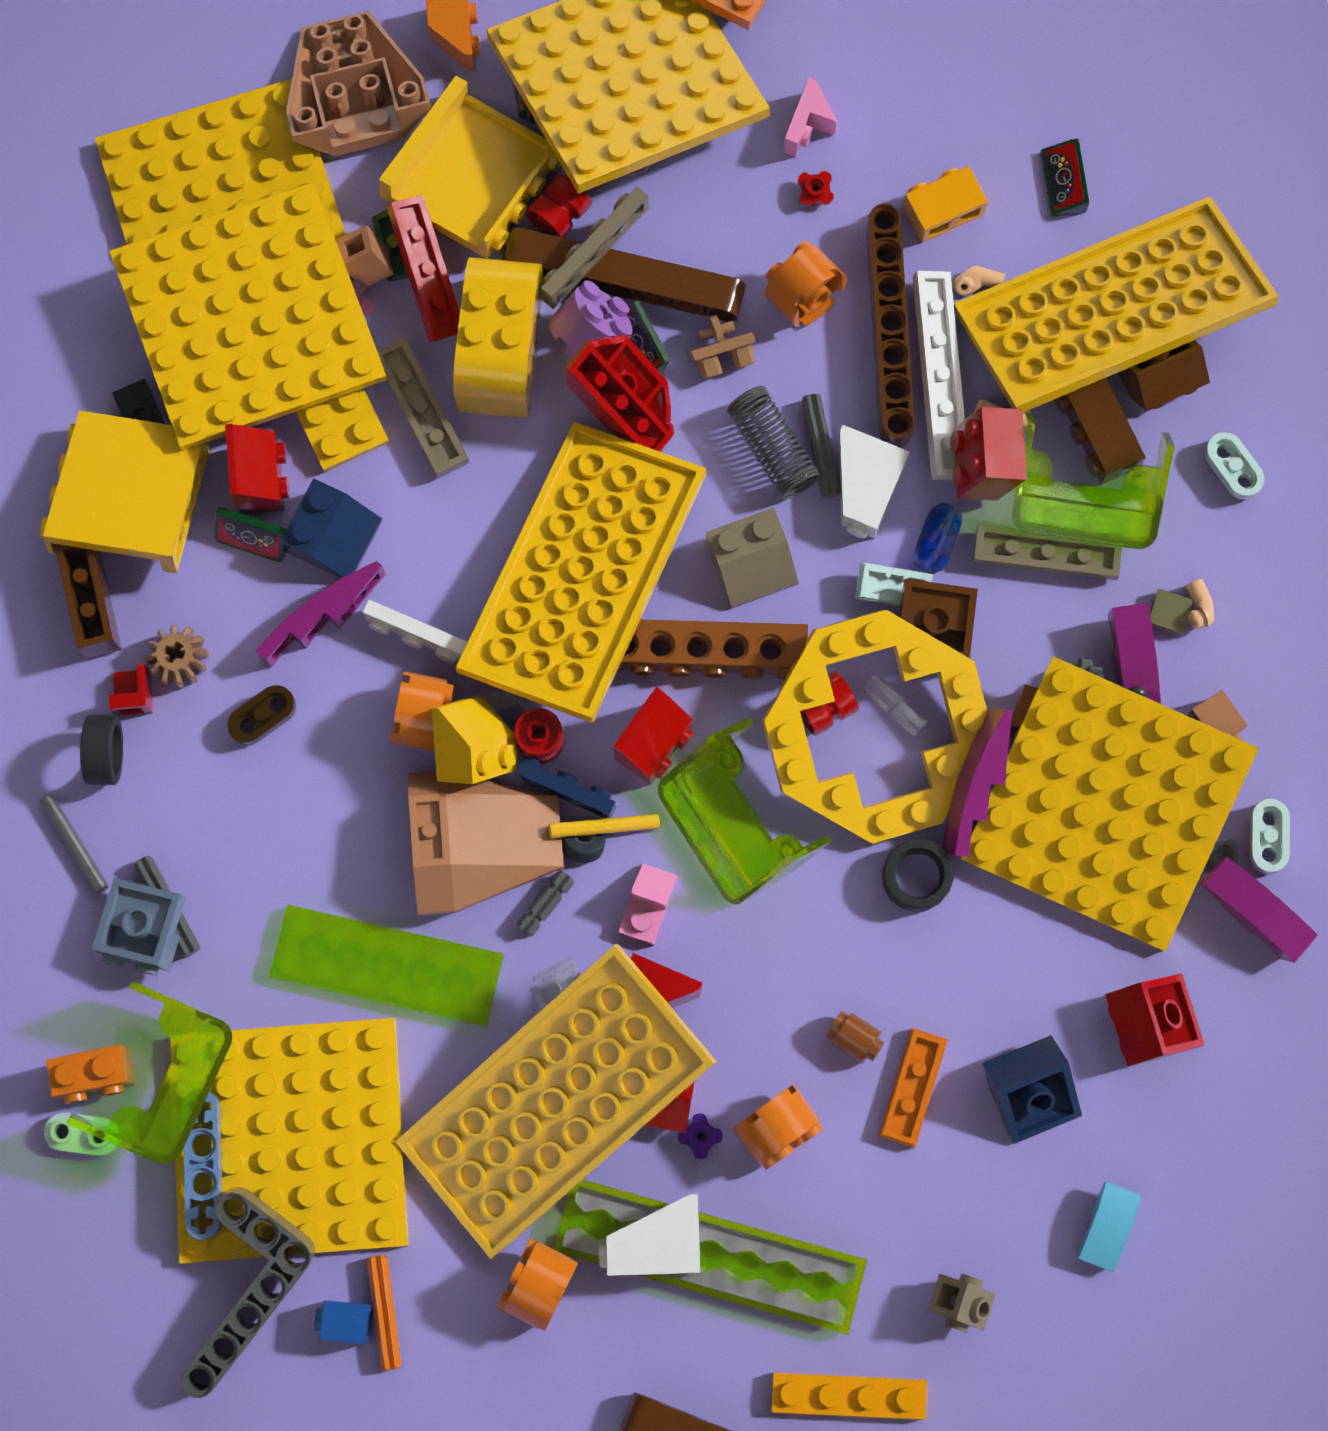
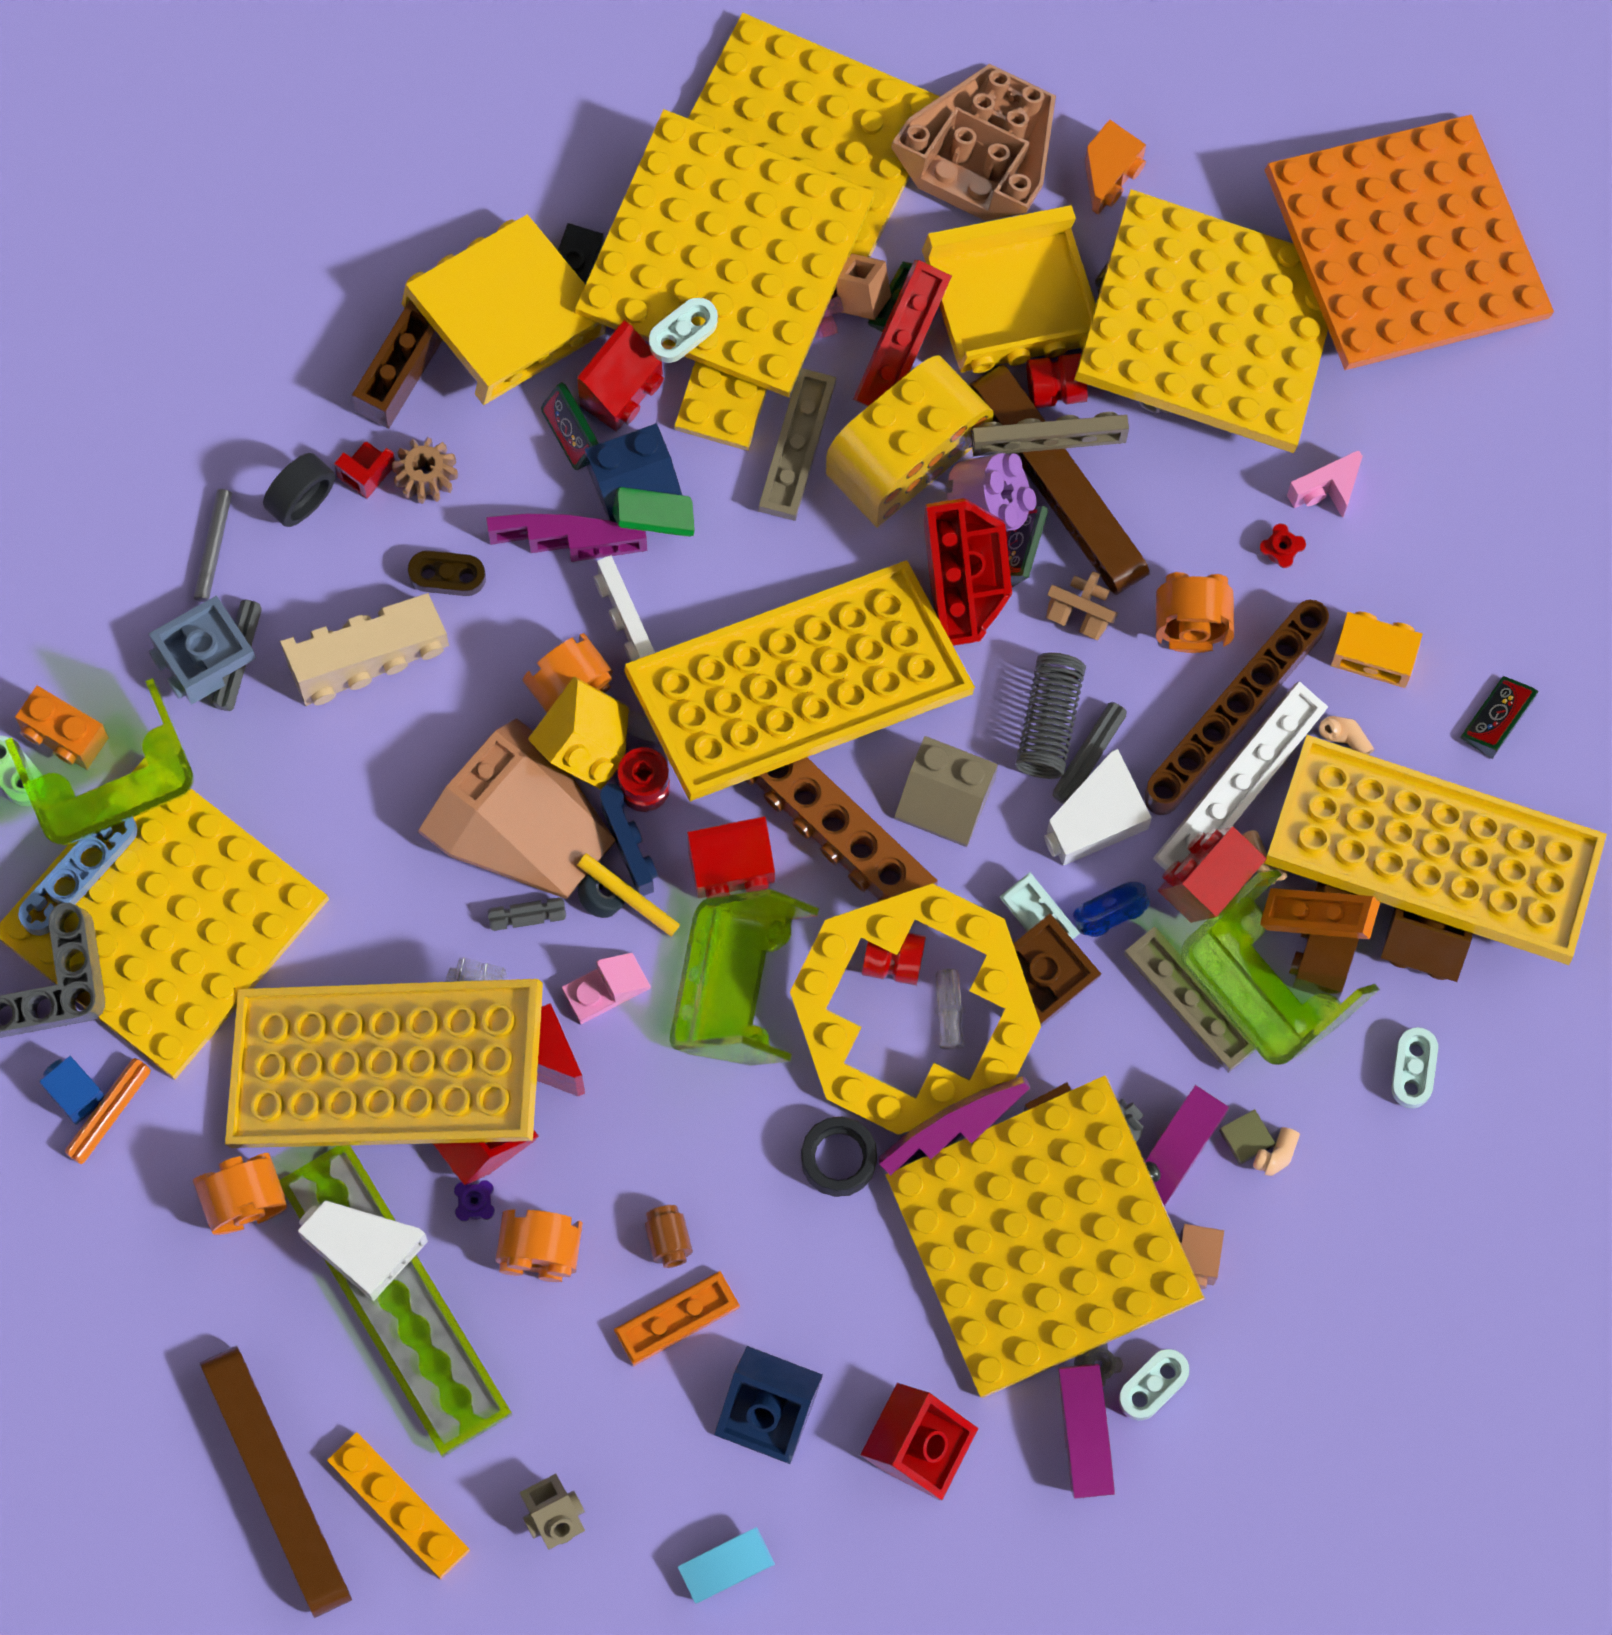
camera: 40 degrees right, 5 degrees down
(256, 820) = (364, 649): none -> tan wedge
(272, 396) = (682, 331): none -> light aqua plate
(368, 542) = (654, 511): none -> green slope
(387, 965) = (360, 852): clear neon green plate -> none
(1086, 415) = (1320, 913): none -> orange plate

